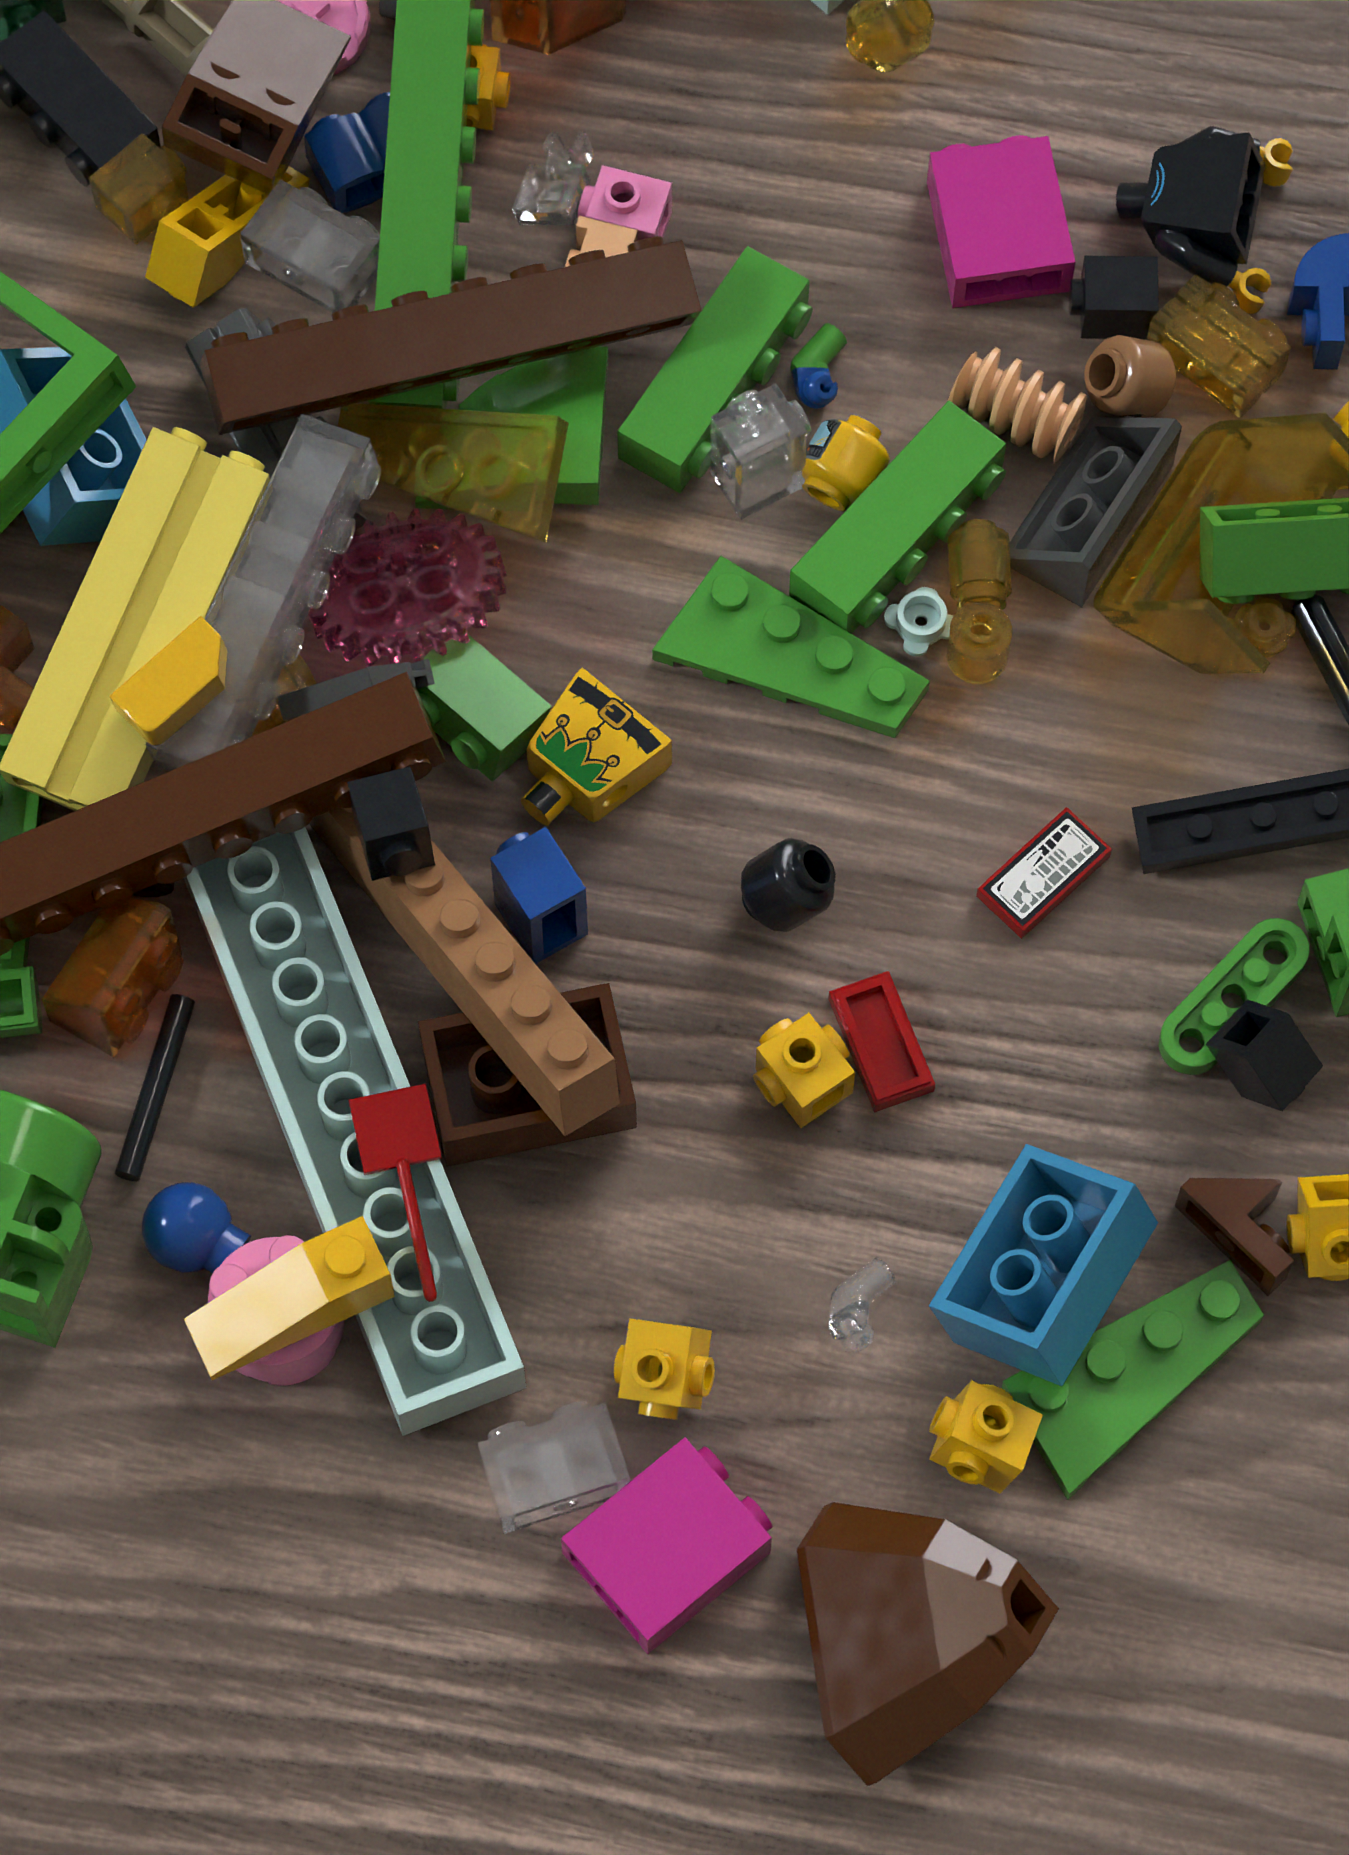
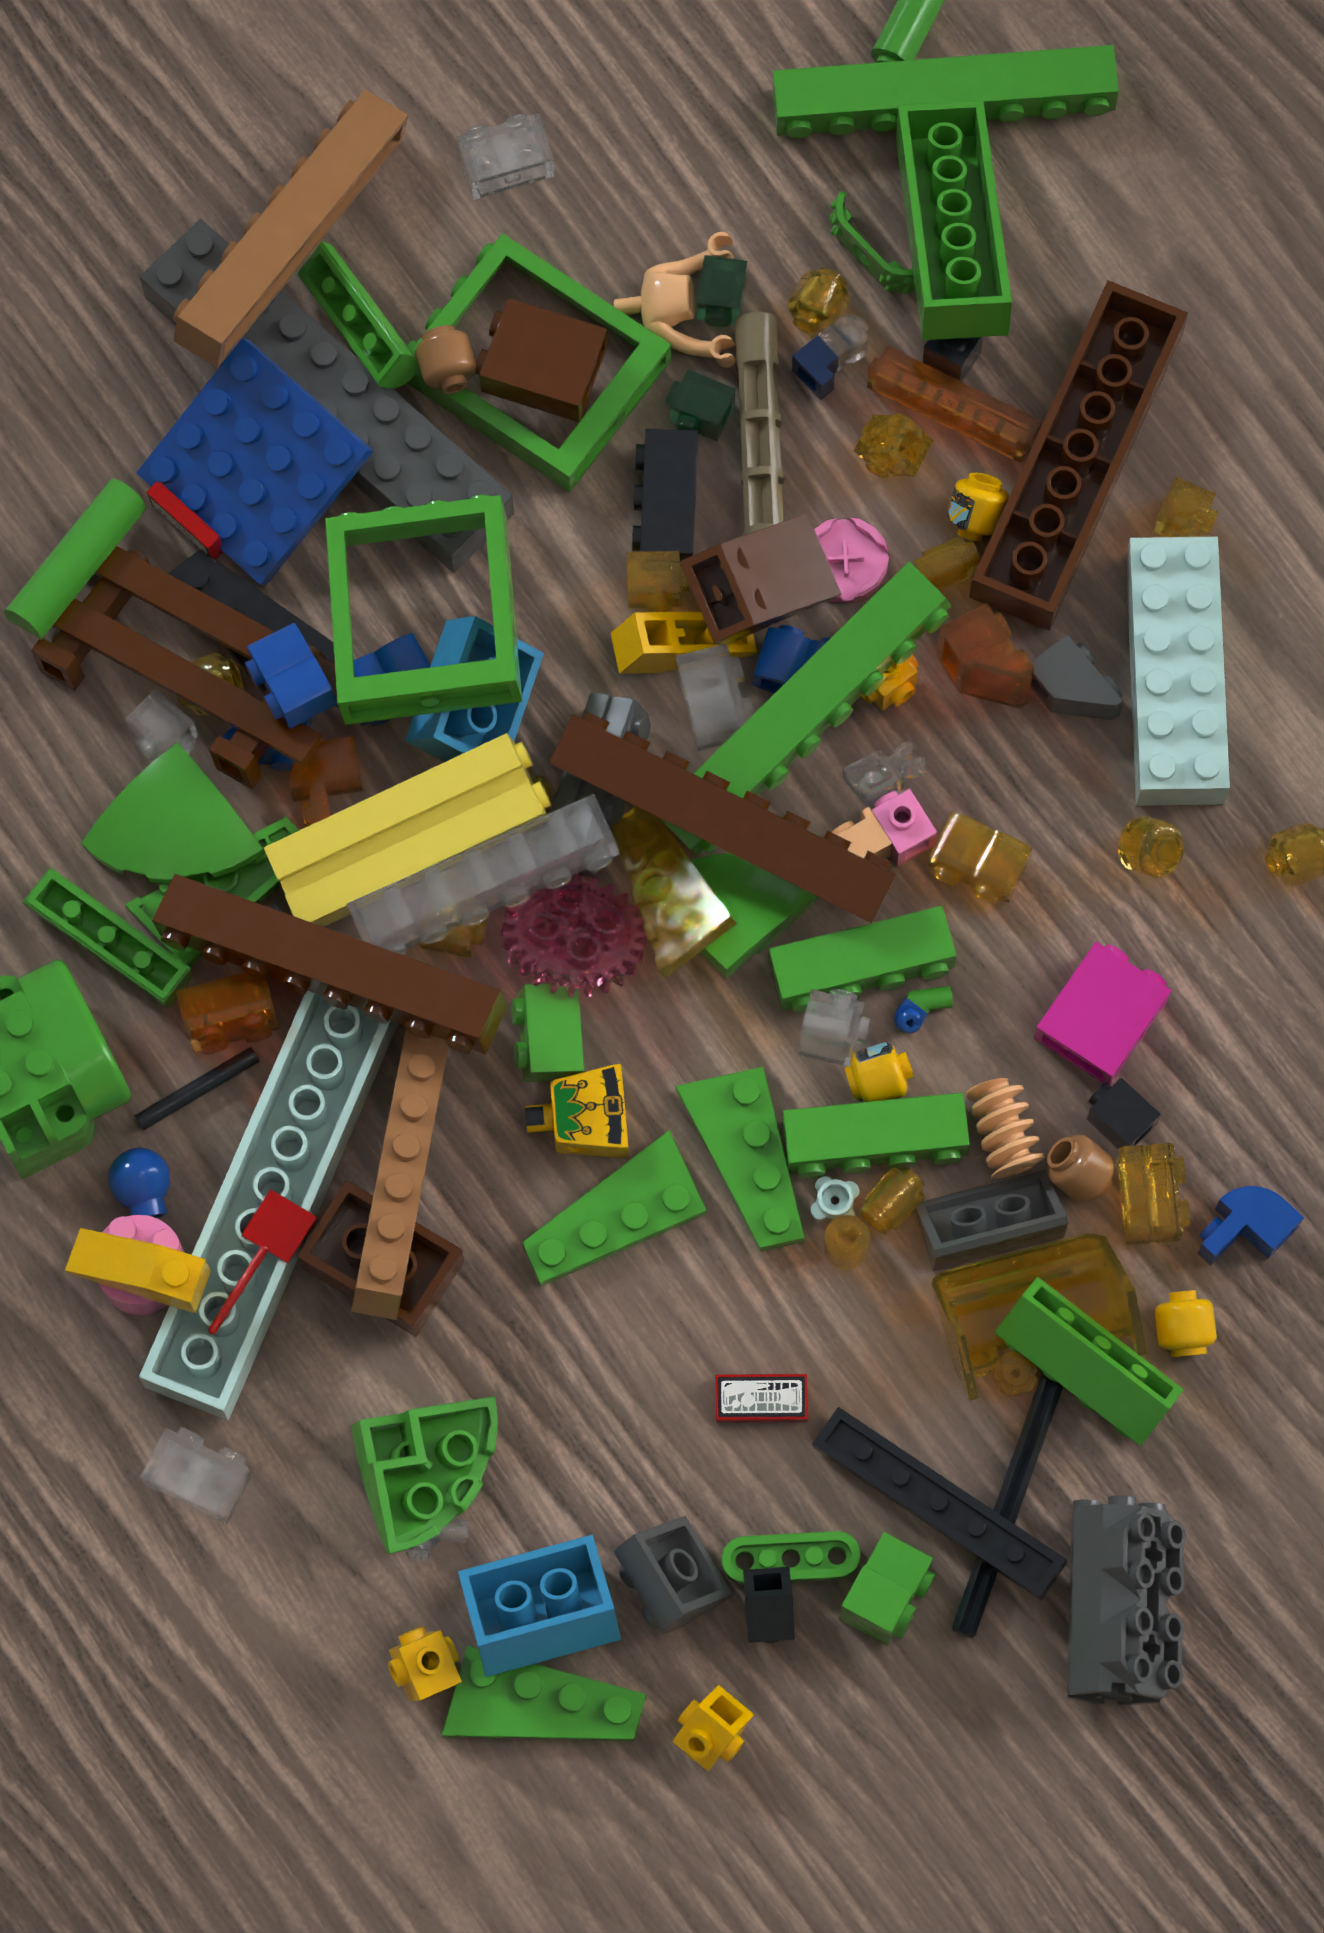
camera: 45 degrees right, 5 degrees up
(174, 683) = (388, 885): yellow piece -> none
(321, 694) = (485, 970): dark grey plate -> none
(391, 823) = (418, 1064): black brick -> none
(539, 894) = (477, 1167): blue brick -> none
(664, 1367) = (301, 1476): yellow brick -> none
(668, 1543) = (217, 1568): dark pink brick -> none
(721, 815) = (623, 1210): none -> bright green wing
(732, 179) = (979, 858): none -> clear yellow brick
(778, 1245) = (424, 1467): none -> bright green brick
(788, 884) = (614, 1281): black head -> none
(803, 1068) = (530, 1401): yellow brick -> none
(881, 1041) = (586, 1409): red tile -> none
(909, 1629) = (286, 1725): reddish brown brick -> none
(1139, 1119) = (671, 1574): none -> dark grey brick
(1206, 204) = (1224, 1105): black torso -> none
(1225, 1215) = (668, 1668): reddish brown slope -> none

